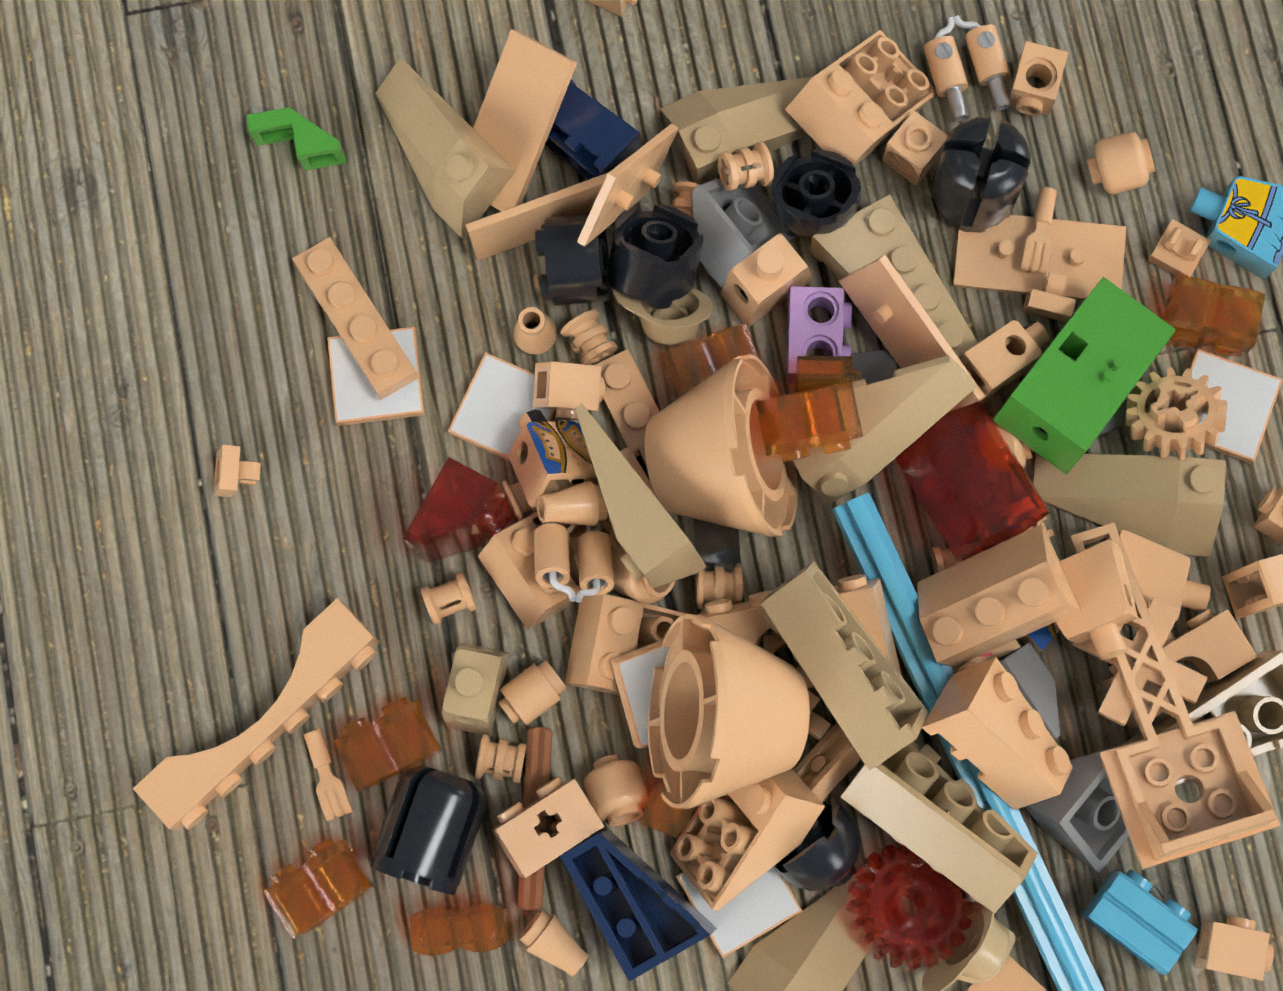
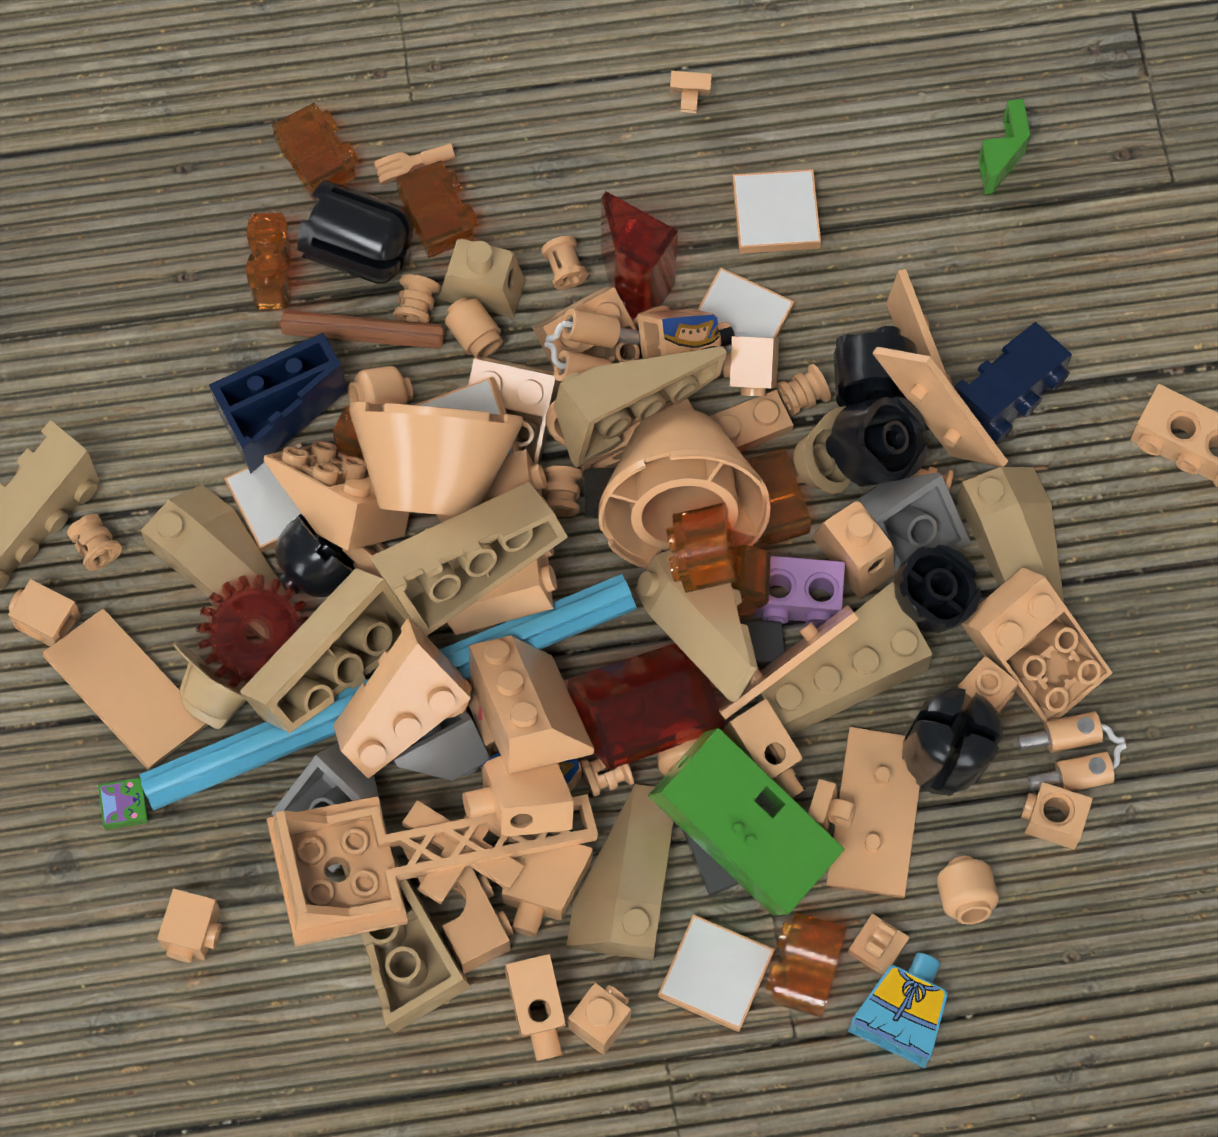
camera: 85 degrees right, 10 degrees down
(328, 651) = (522, 161): light nougat arch -> none
(355, 318) = (829, 190): light nougat plate -> none
(447, 155) = (991, 269): tan wedge -> none
(522, 109) = (1011, 322): light nougat piece -> none
(537, 339) = (813, 342): light nougat cone -> none
(551, 942) = (250, 337): light nougat cone -> none
(573, 505) = (635, 340): light nougat cone -> none
(573, 824) = (335, 308): light nougat brick -> none
(761, 167) = (961, 517): light nougat bush -> none
(1038, 244) = (885, 805): light nougat piece -> none
(1139, 921) = (223, 842): medium azure brick -> none
(1176, 413) = (706, 909): light nougat gear -> none

